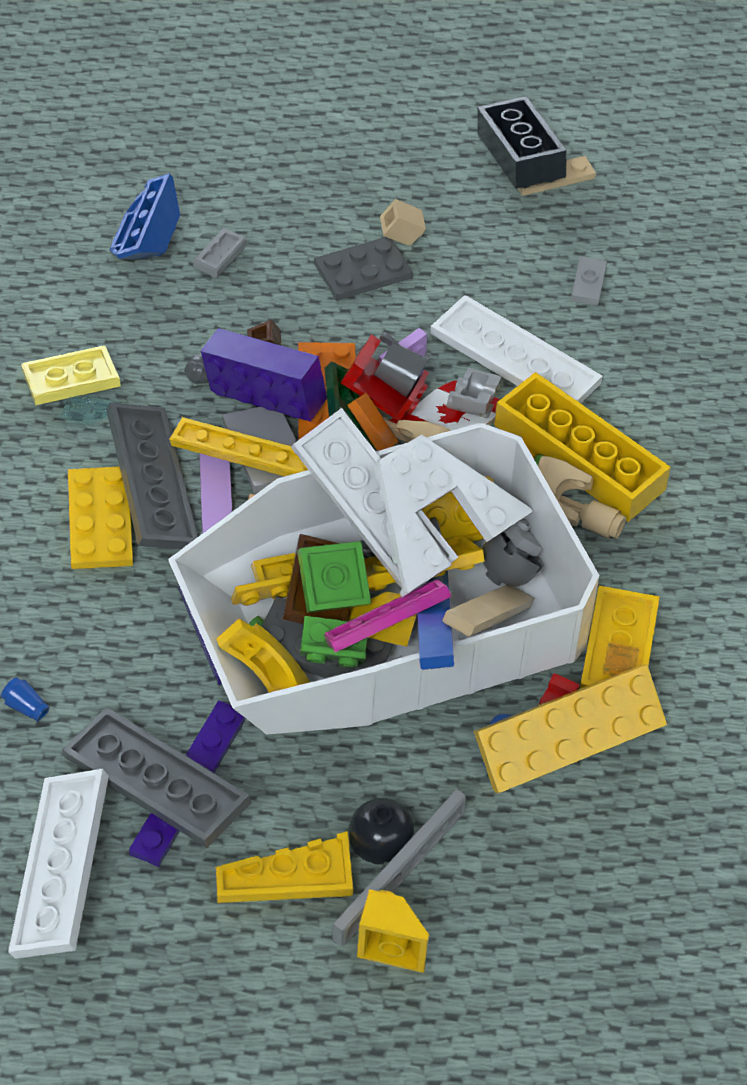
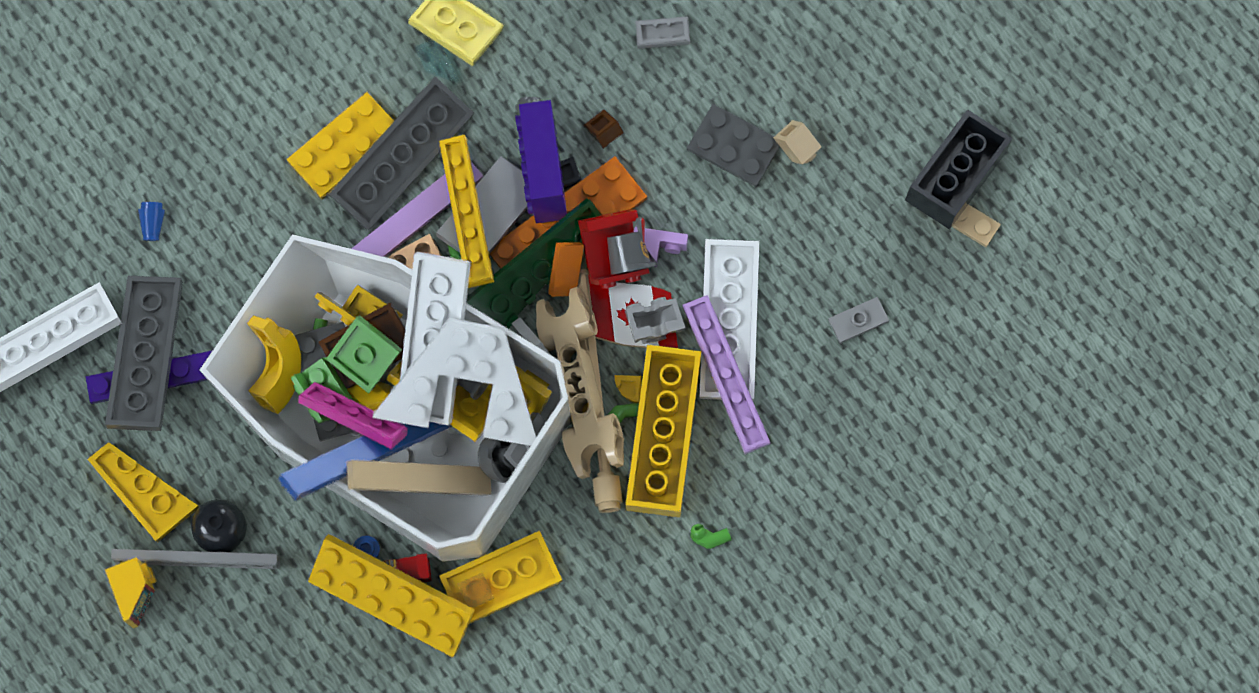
camera: 60 degrees right, 25 degrees up
(569, 377) = (726, 374): none -> lavender tile
(703, 481) = (708, 539): none -> bright green arm

